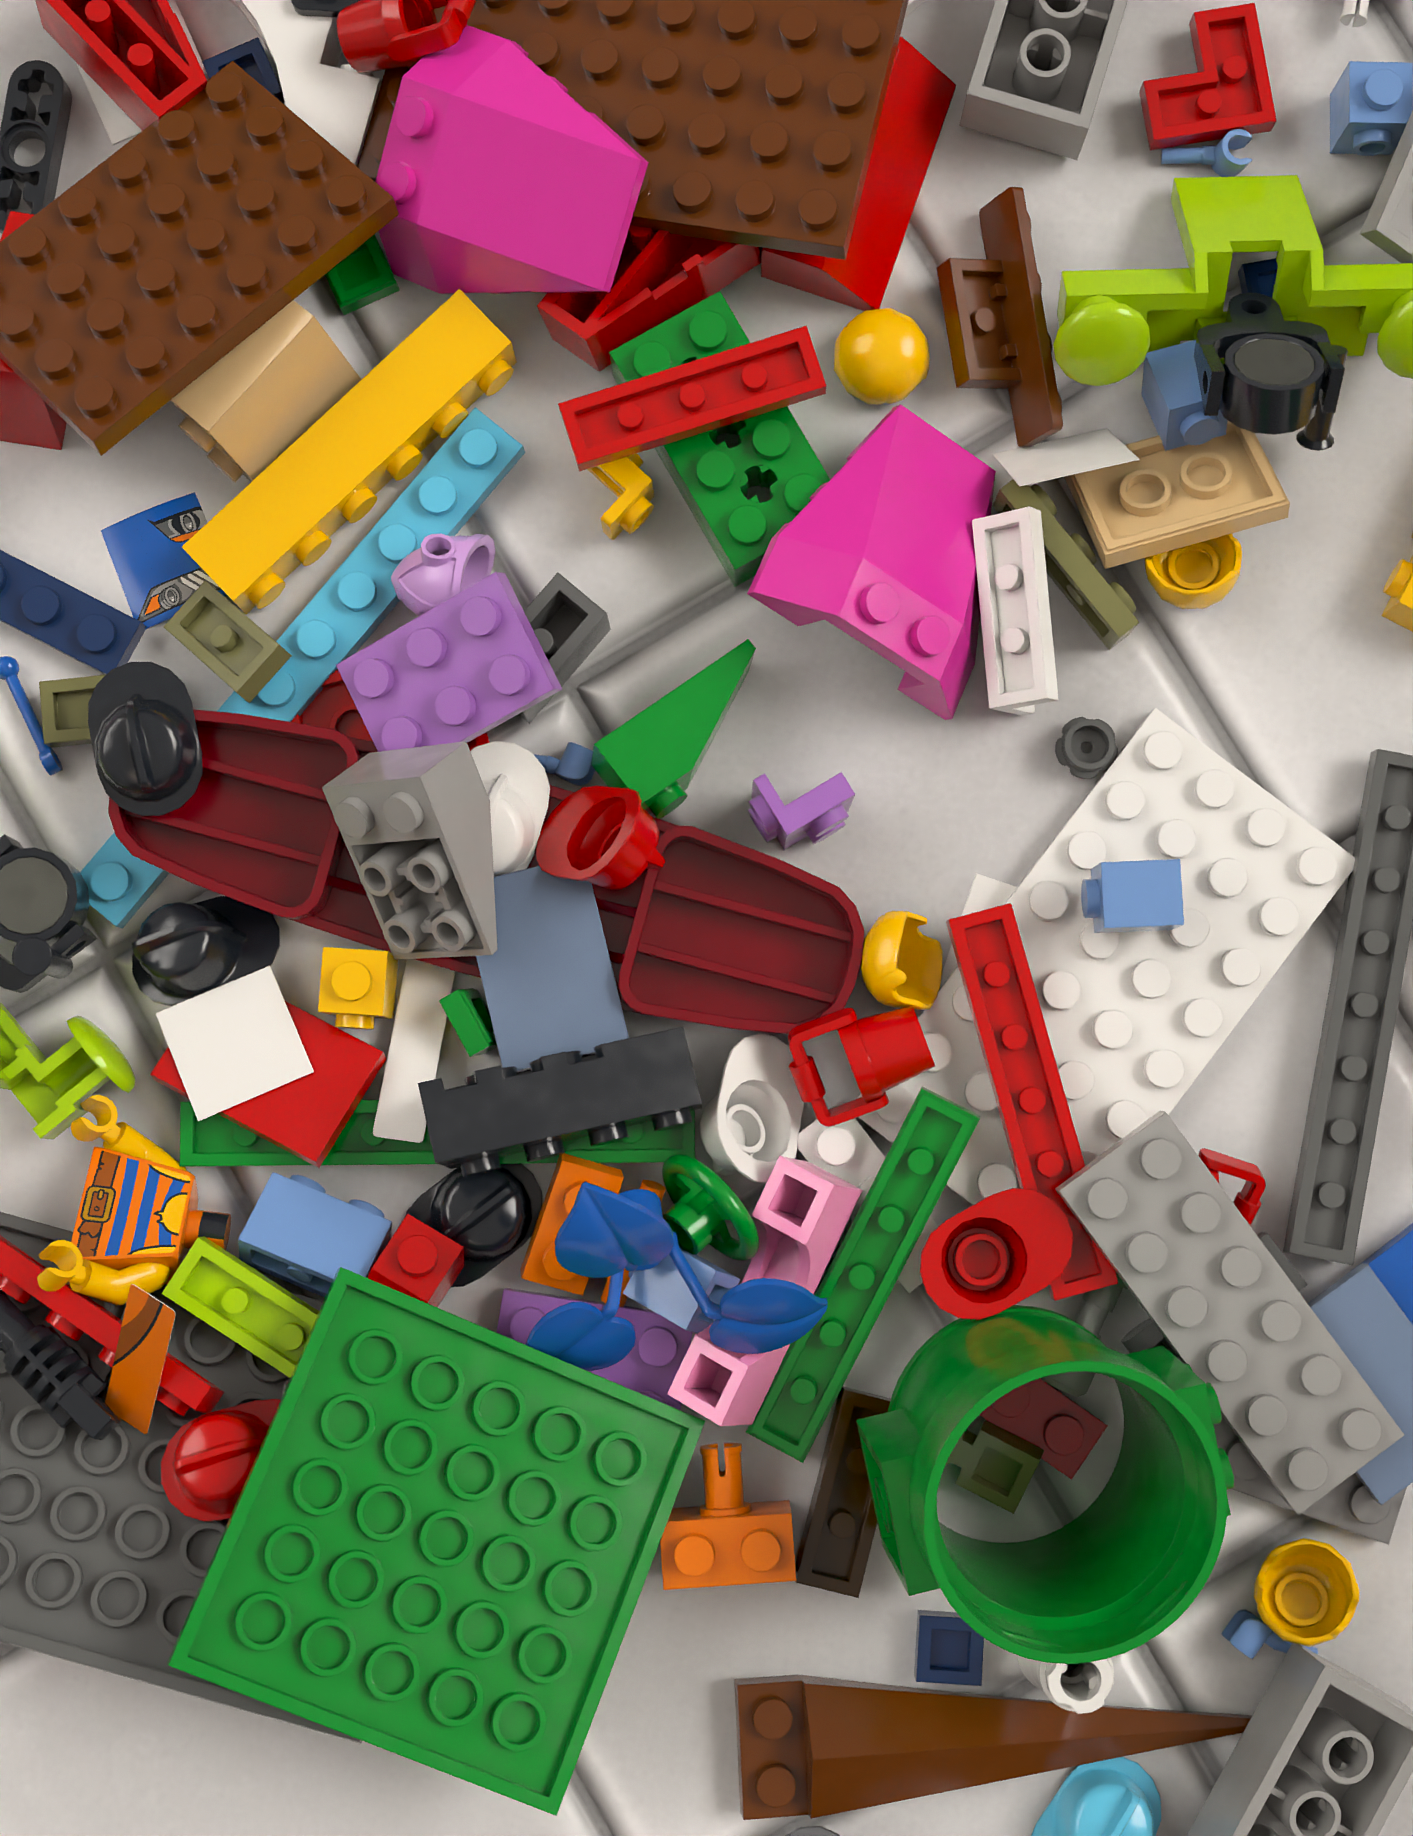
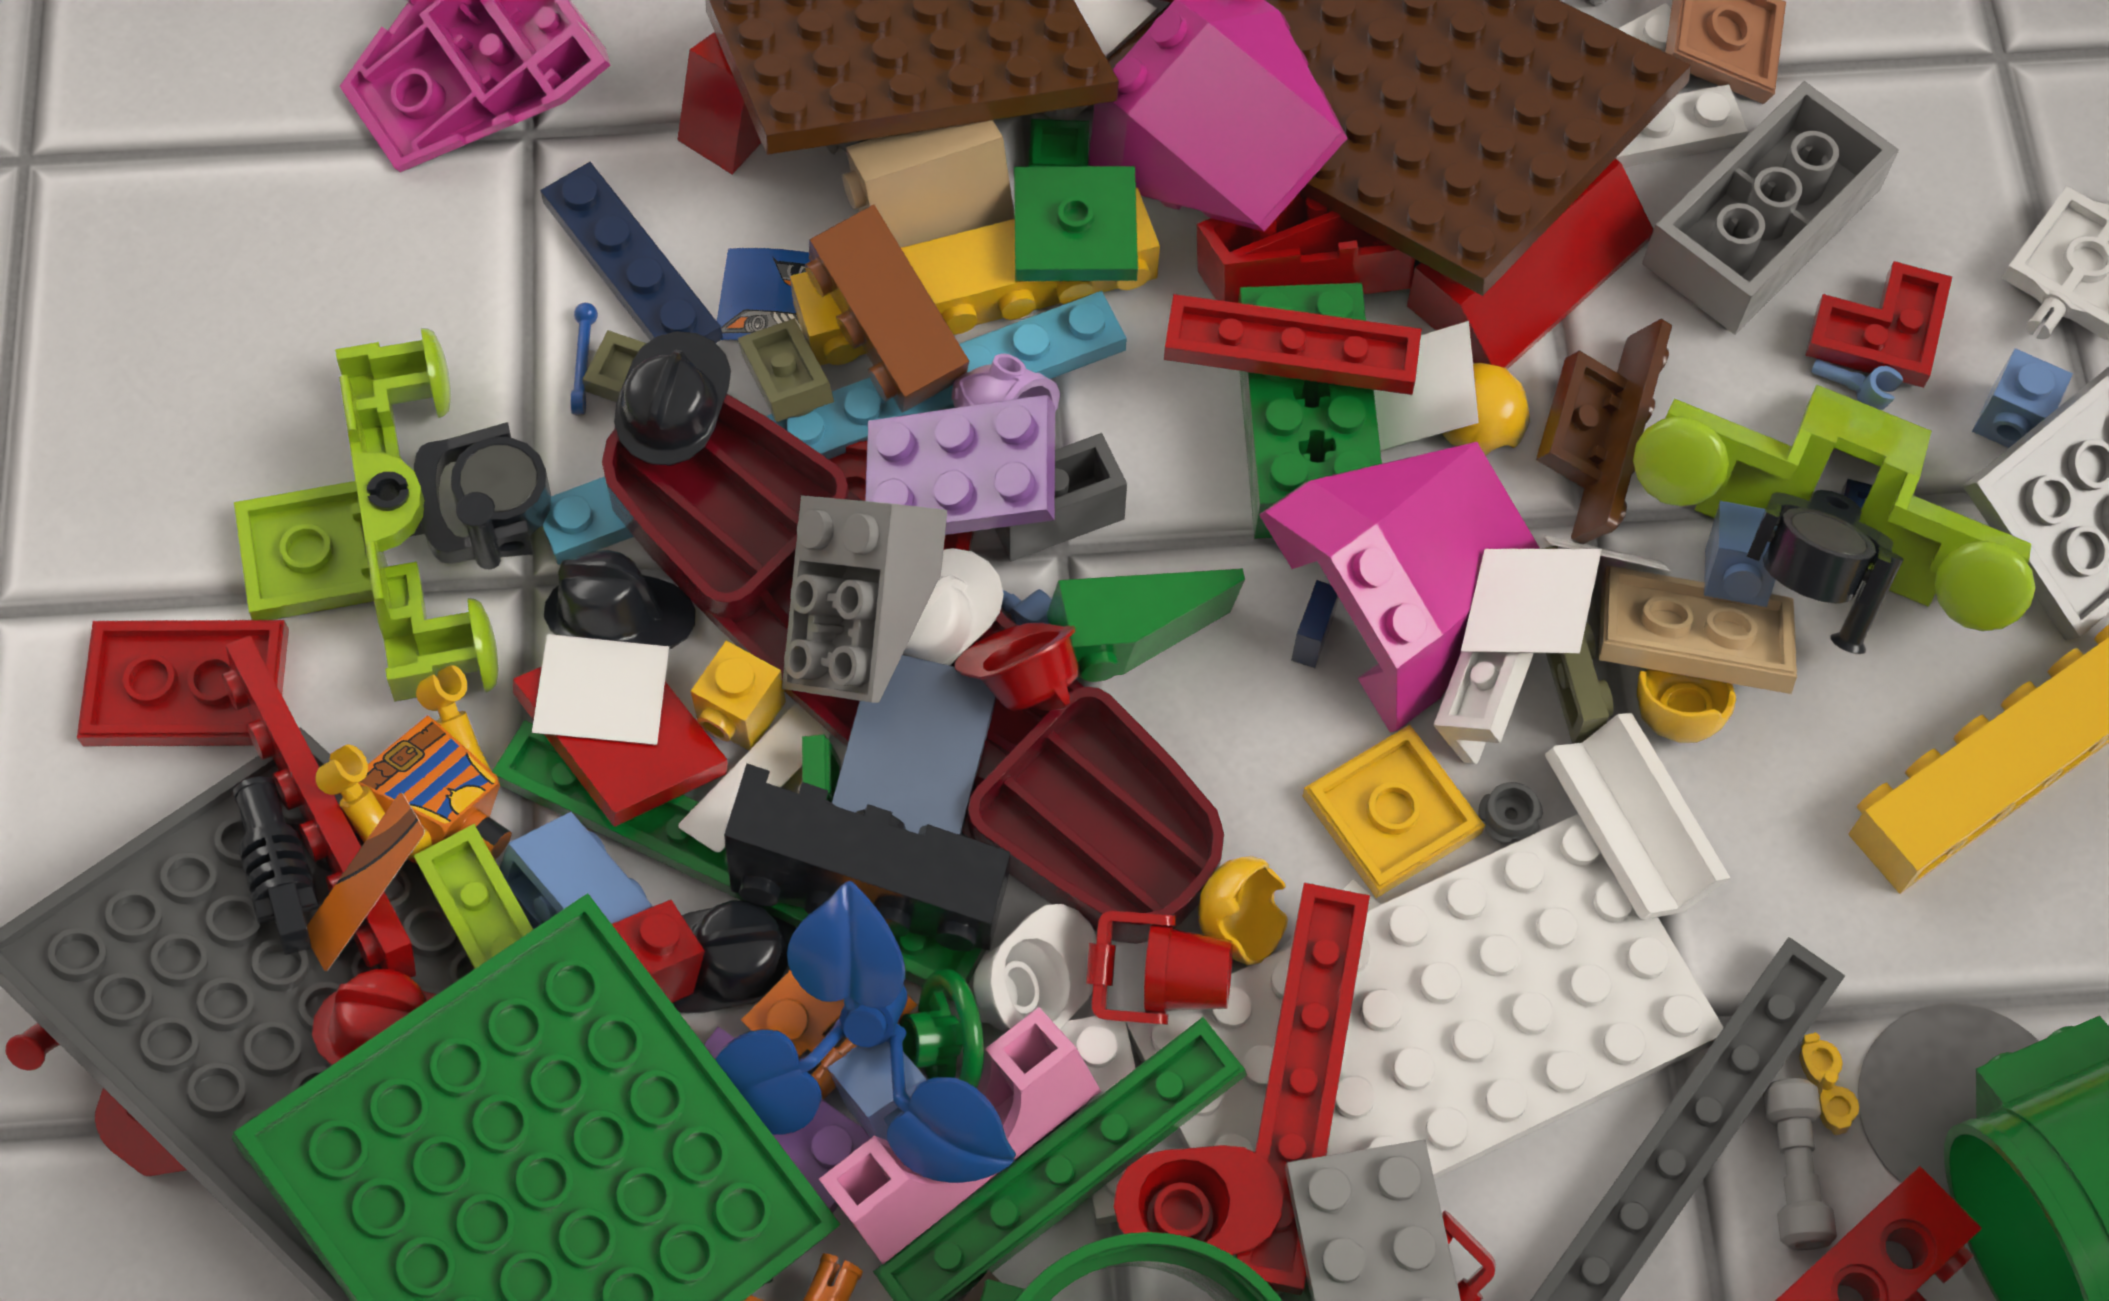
camera: 20 degrees right, 20 degrees down
(292, 545) = (885, 309): none -> dark orange brick
(422, 360) = (1075, 223): none -> green plate
(633, 493) = (1202, 409): yellow bracket -> none
(811, 815) = (1217, 734): medium lavender bracket -> none
(834, 657) = (1315, 624): none -> dark blue tile
(844, 355) = (1441, 395): none -> white sticker
(982, 794) = (1393, 811): none -> yellow tile
(1027, 550) = (1531, 600): none -> white sticker
(1134, 896) = (1488, 941): medium blue brick -> none
(1201, 702) = (1638, 819): none -> white panel

